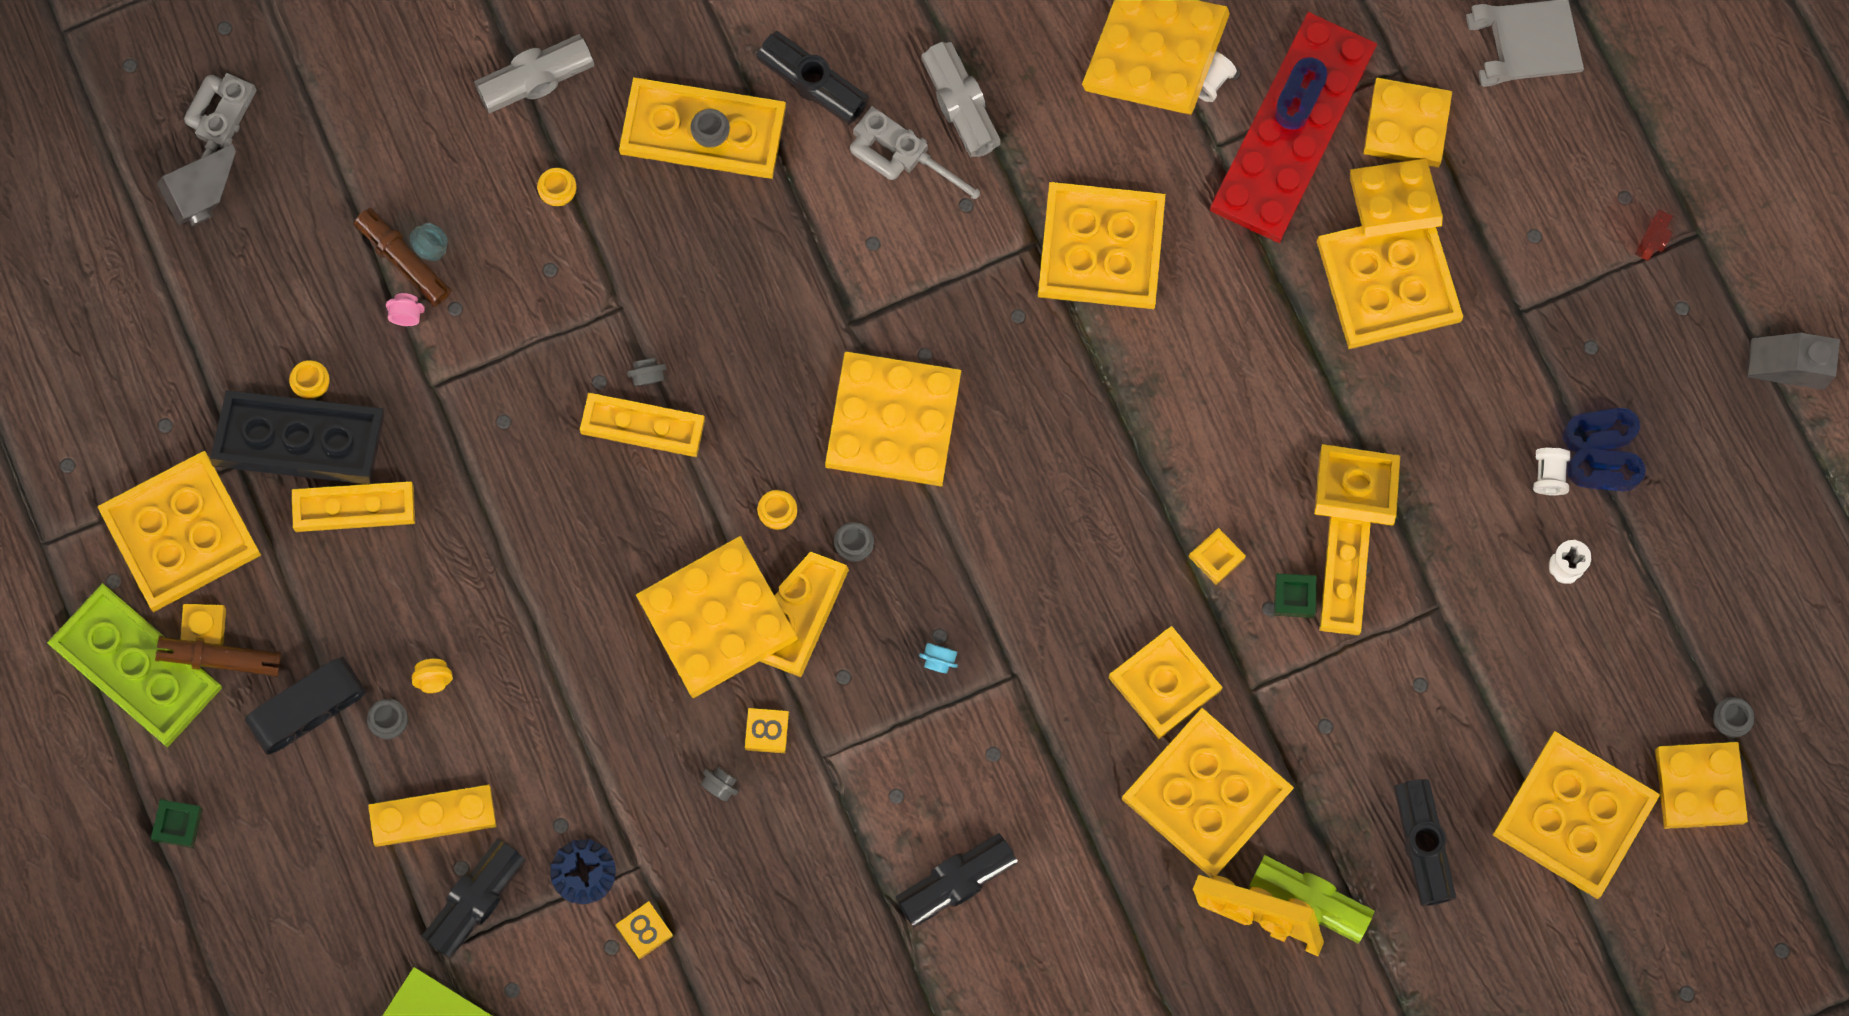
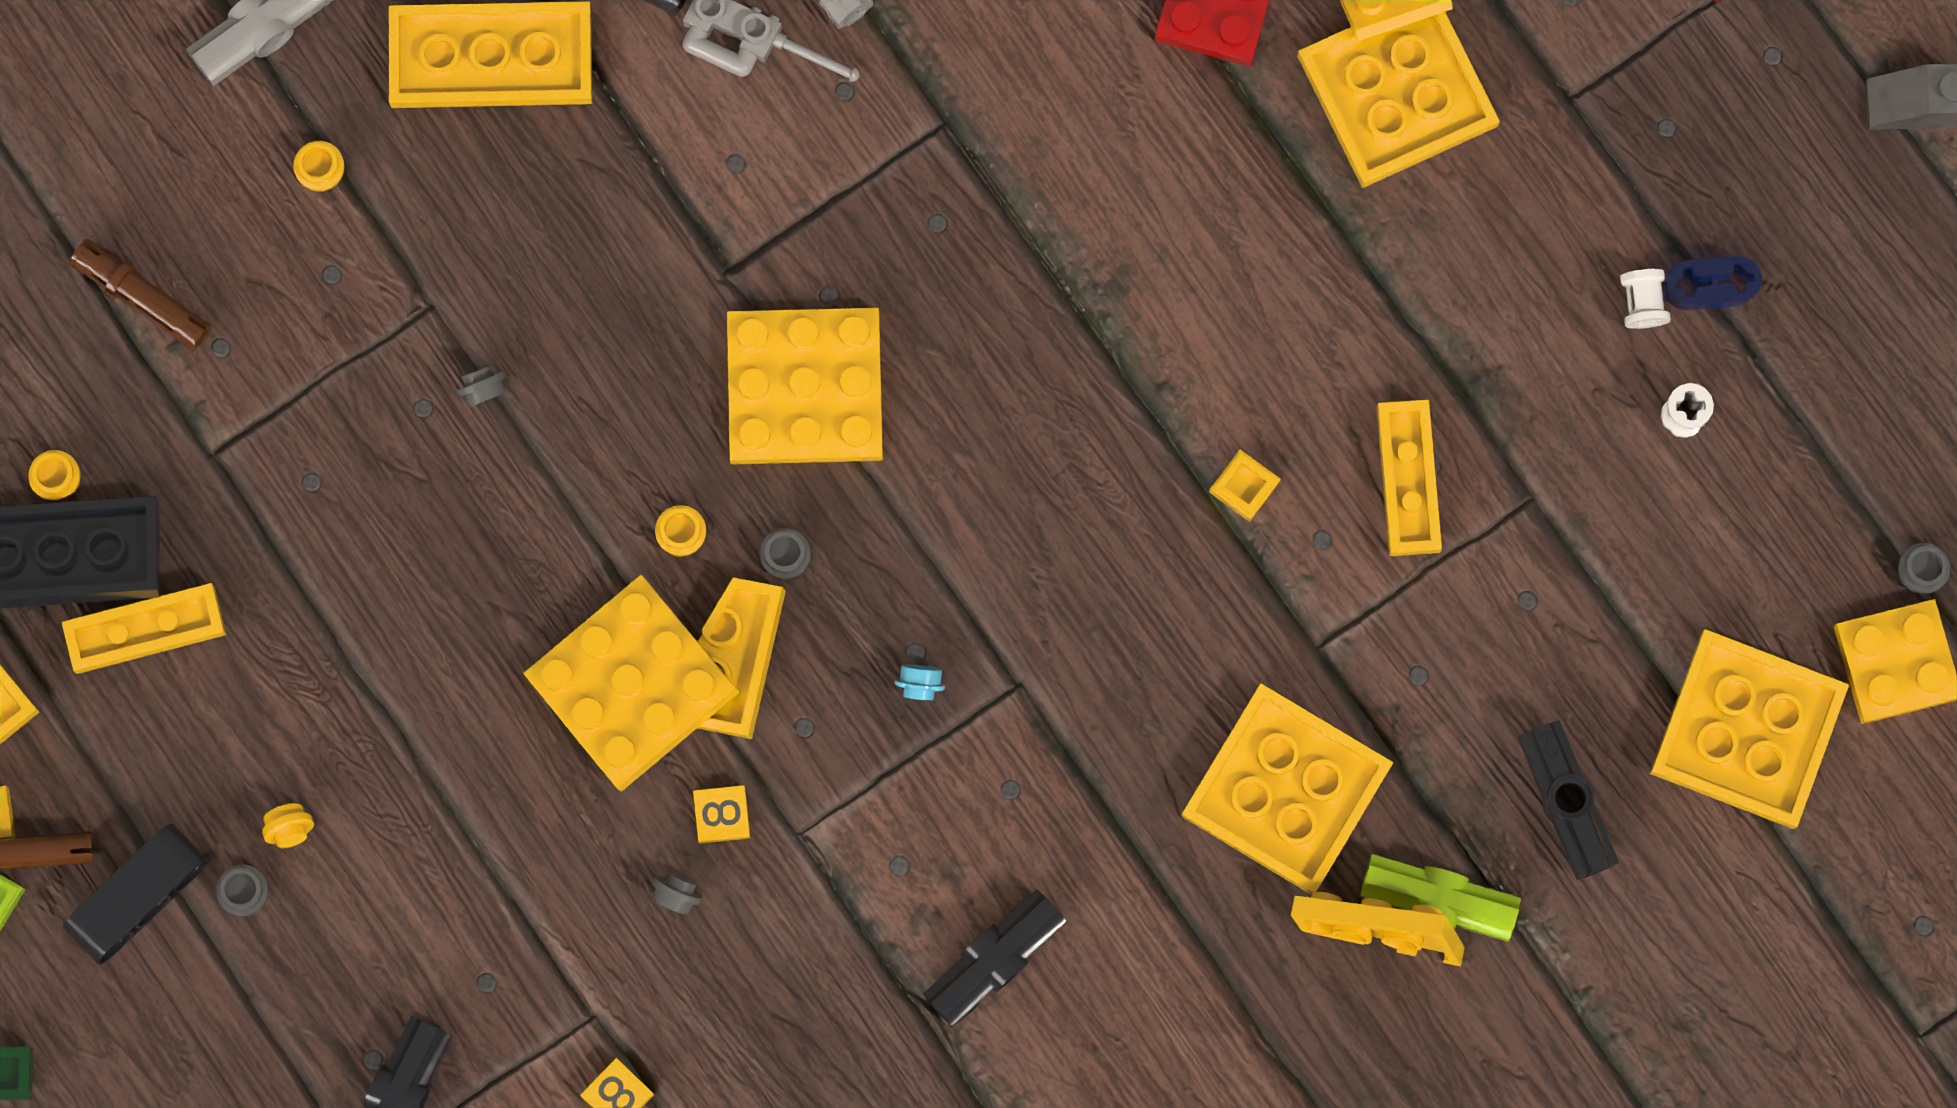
camera: 10 degrees left, 5 degrees up
(404, 309) = (157, 362): bright pink plate -> none
(429, 241) = (170, 268): clear light blue plate -> none
(432, 815) = (323, 1001): yellow plate -> none
(600, 879) = (550, 1041): dark blue gear -> none
(642, 425) = (489, 454): yellow plate -> none
(710, 128) = (500, 55): dark grey plate -> none
(1101, 245) = (1026, 113): yellow plate -> none
(1165, 682) = (1209, 659): yellow plate -> none
(1295, 595) = (1351, 518): dark green plate -> none
(1357, 484) = (1404, 362): yellow plate -> none
(1600, 421) = (1693, 222): clear blue beam -> none

